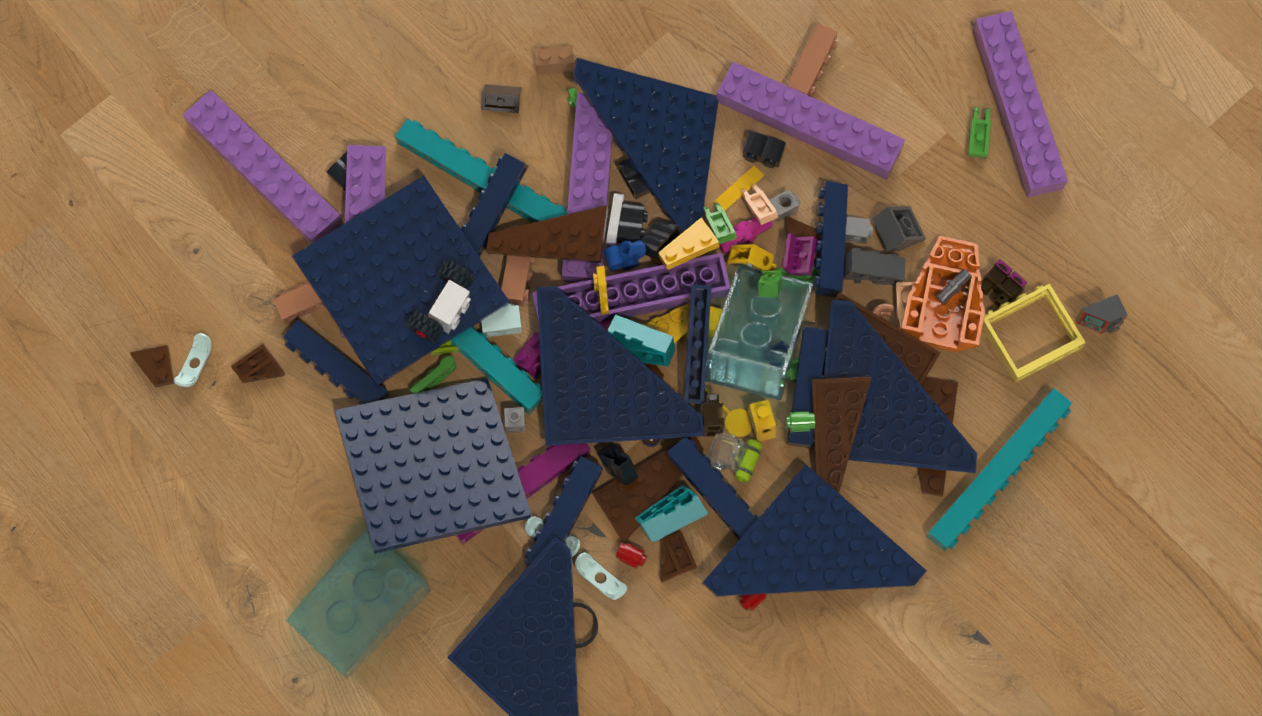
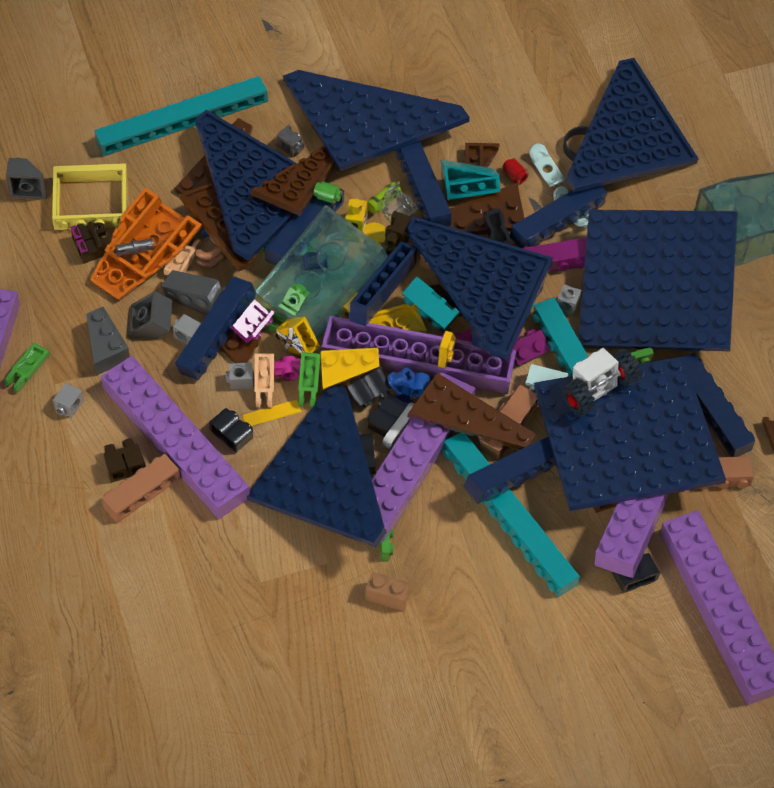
camera: 160 degrees left, 15 degrees down
(501, 98) = (455, 581): dark brown panel -> none
(839, 79) = (115, 460): none -> dark brown hips
(874, 487) = (290, 141): none -> flat silver brick
(922, 114) = (68, 400): none -> light grey brick
(924, 184) = (106, 342): none -> dark grey wedge

